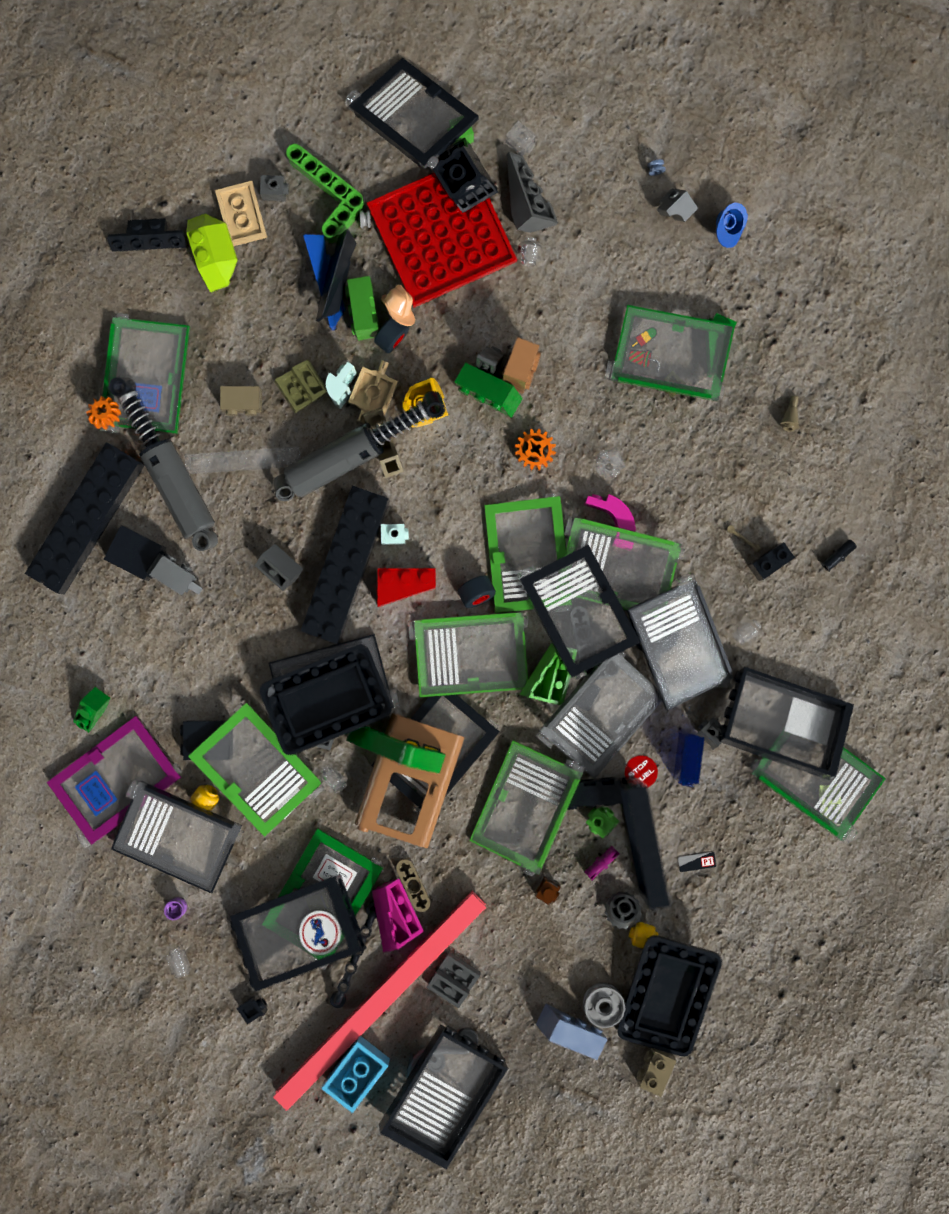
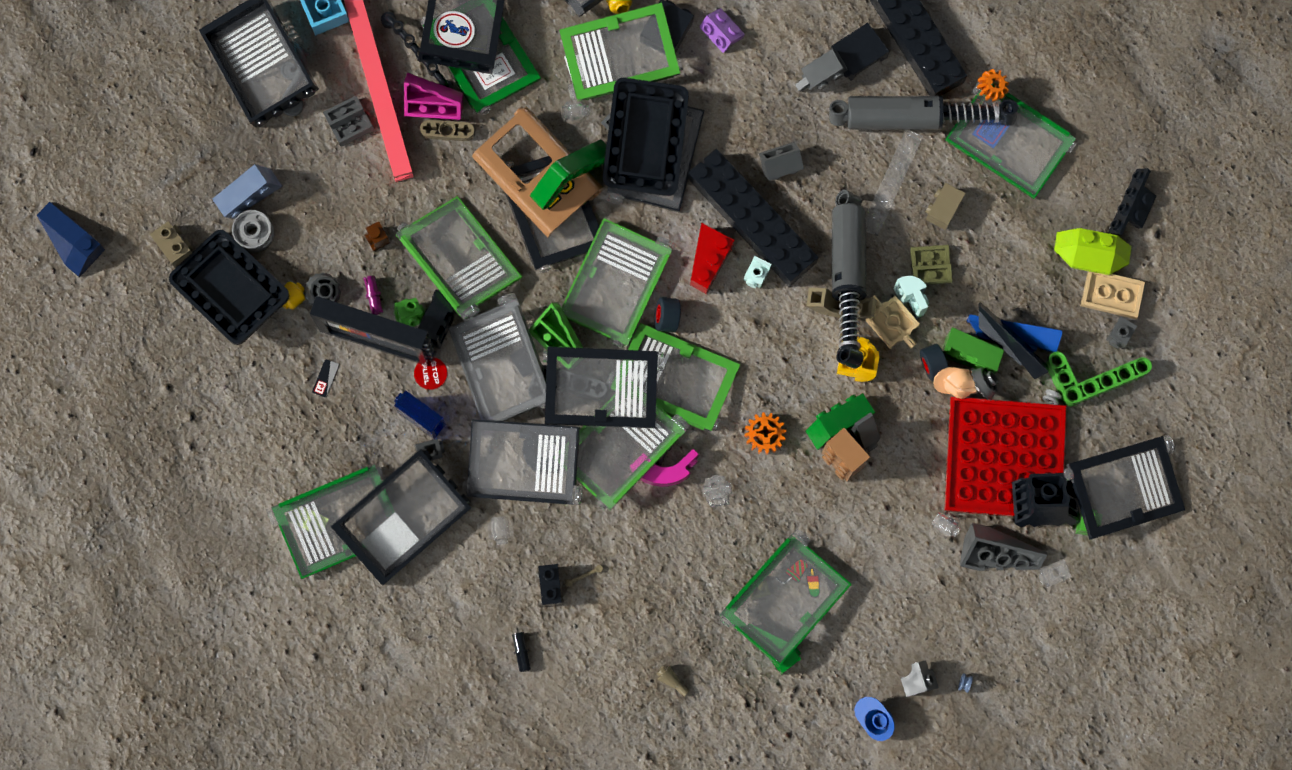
camera: 125 degrees right, 10 degrees down
(181, 689) = (721, 29): none -> medium lavender bracket
(385, 281) = (985, 382): none -> dark grey piece
(702, 1161) = (72, 243): none -> dark blue wedge

